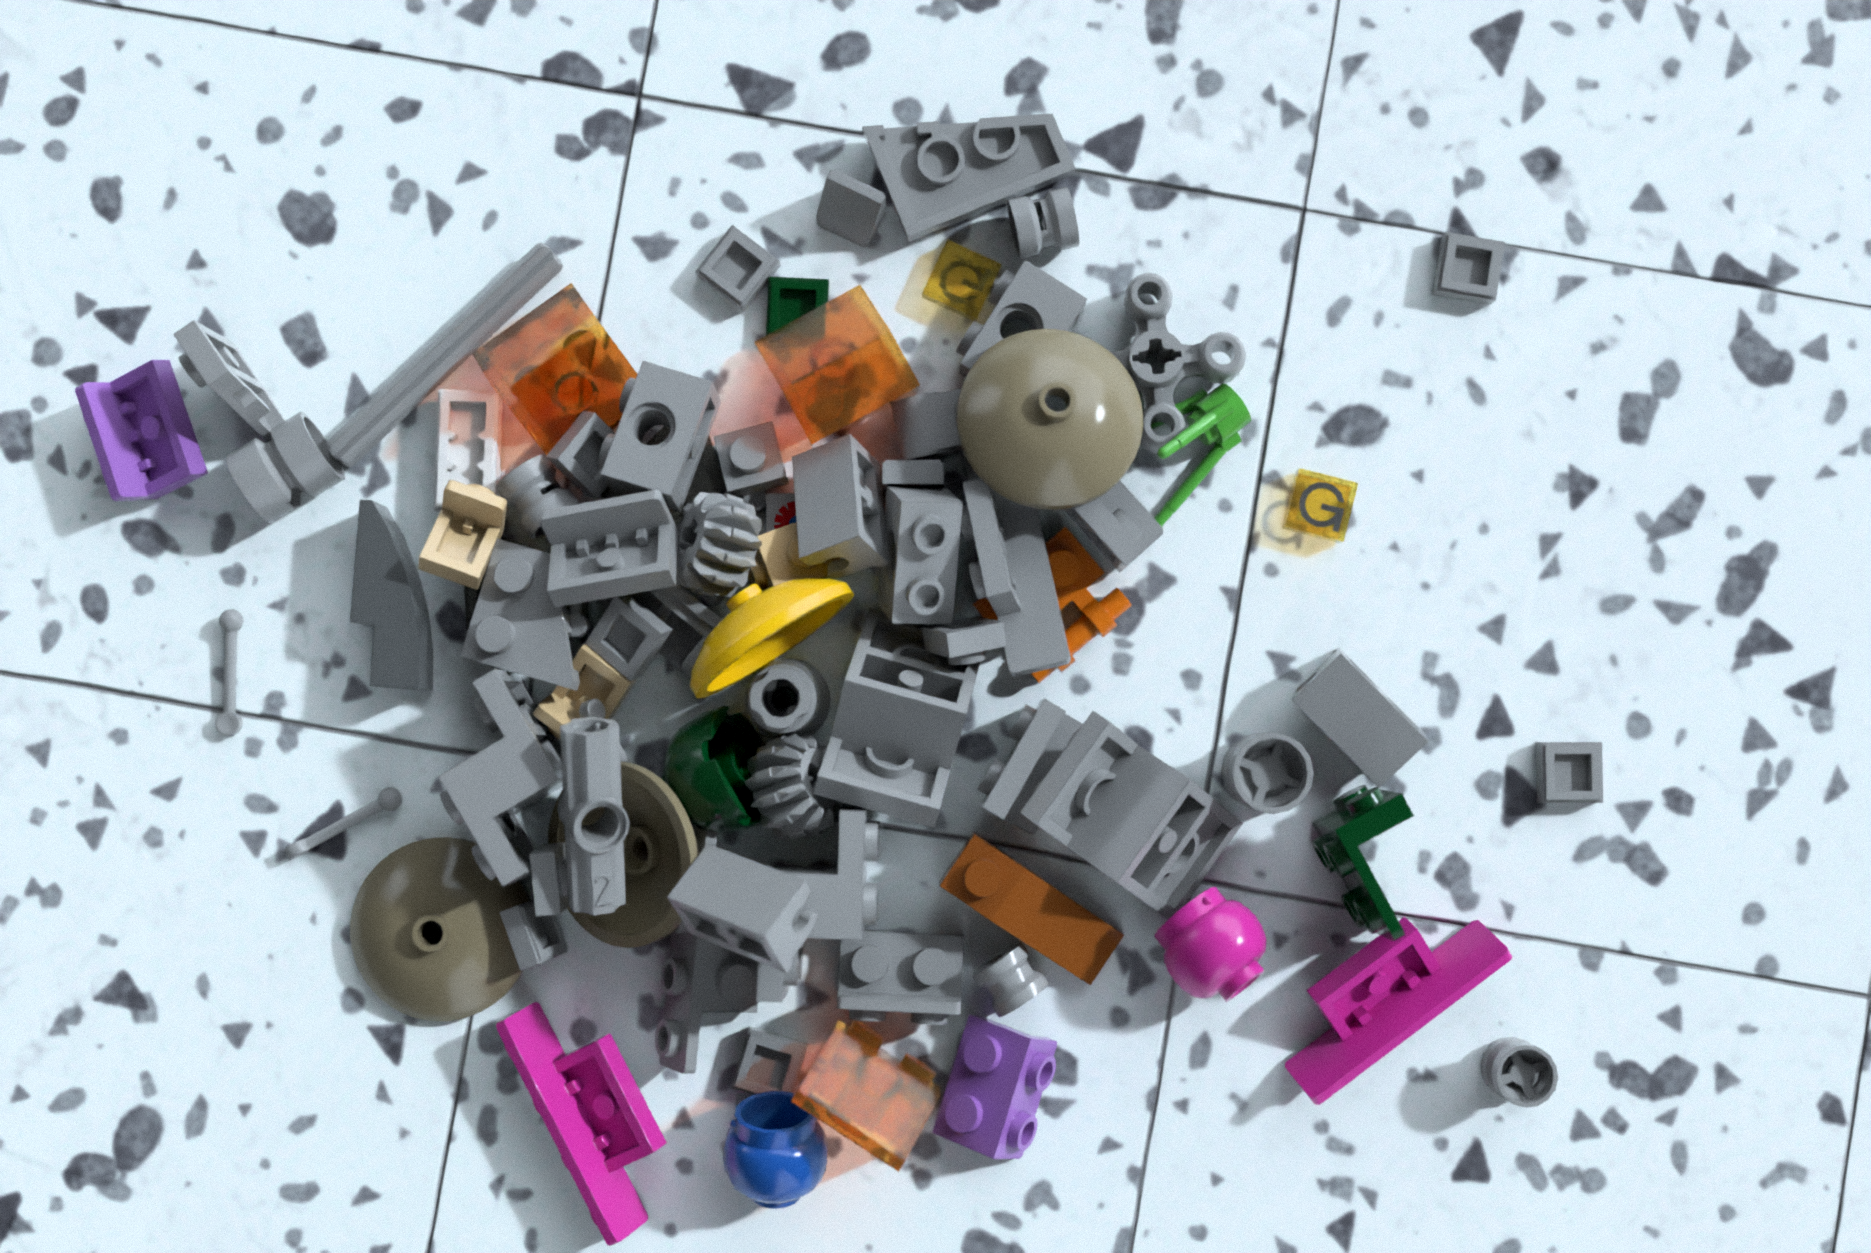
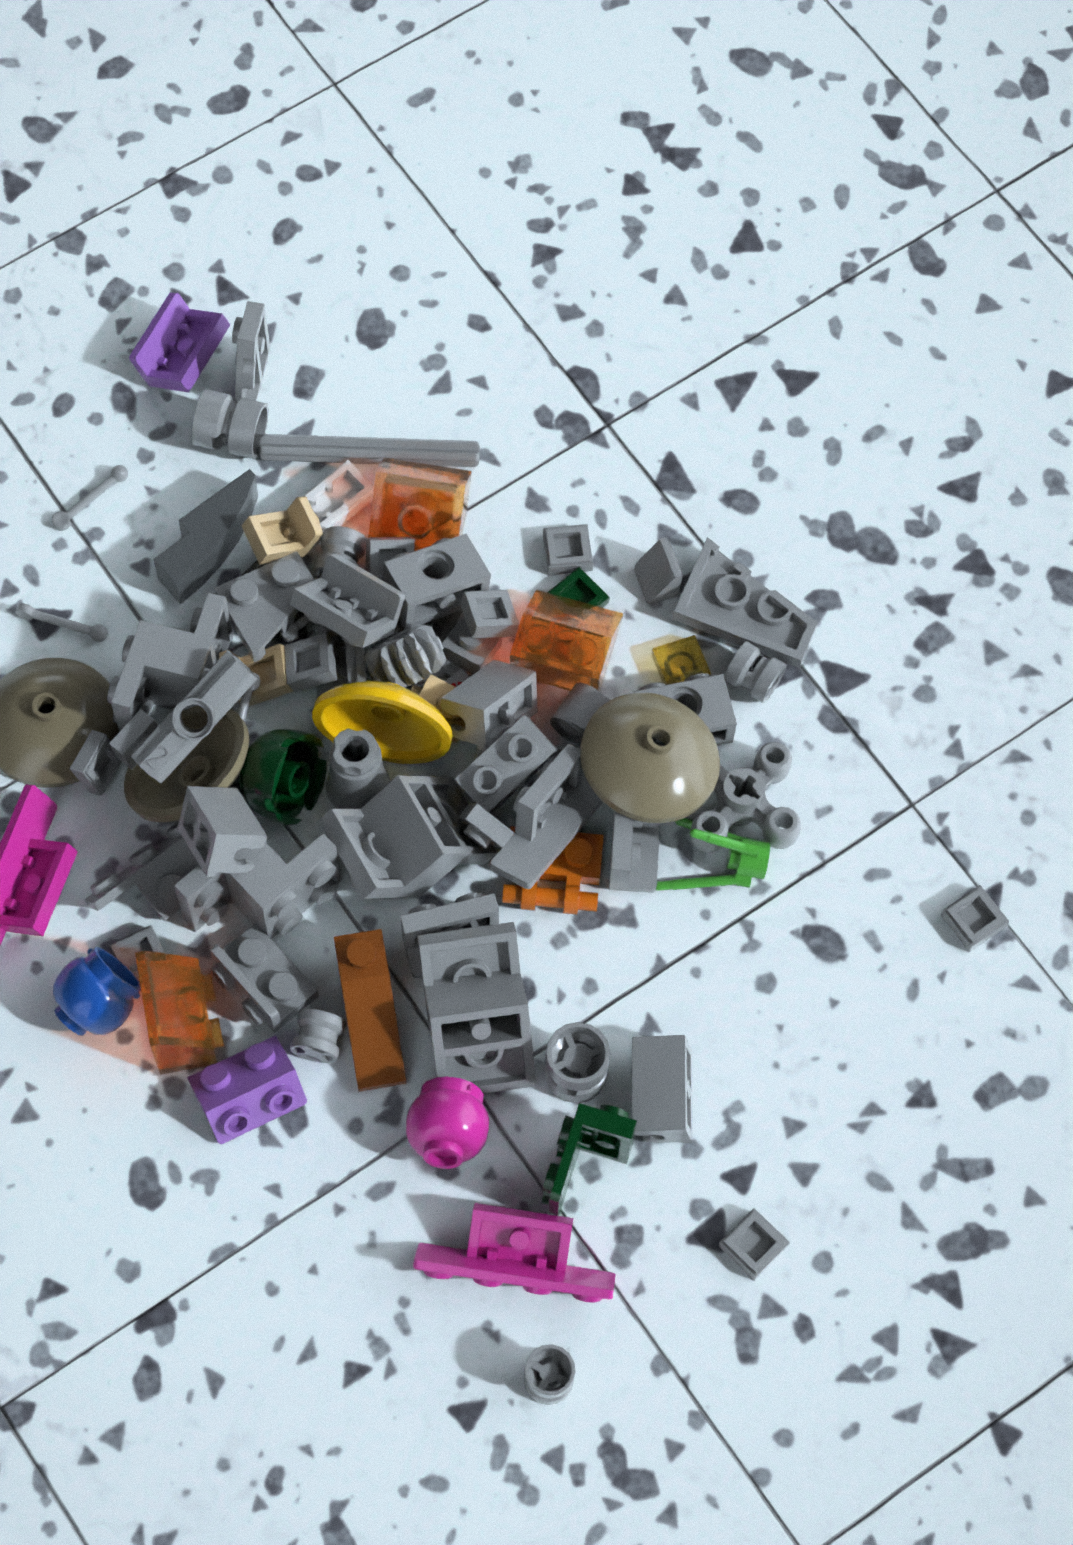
camera: 45 degrees right, 20 degrees down
(746, 418) = (489, 614): none -> light grey plate
(784, 786) = (303, 809): light grey gear -> none
(912, 473) = (550, 725): light grey tile -> none
(1320, 505) = (758, 961): clear yellow tile -> none

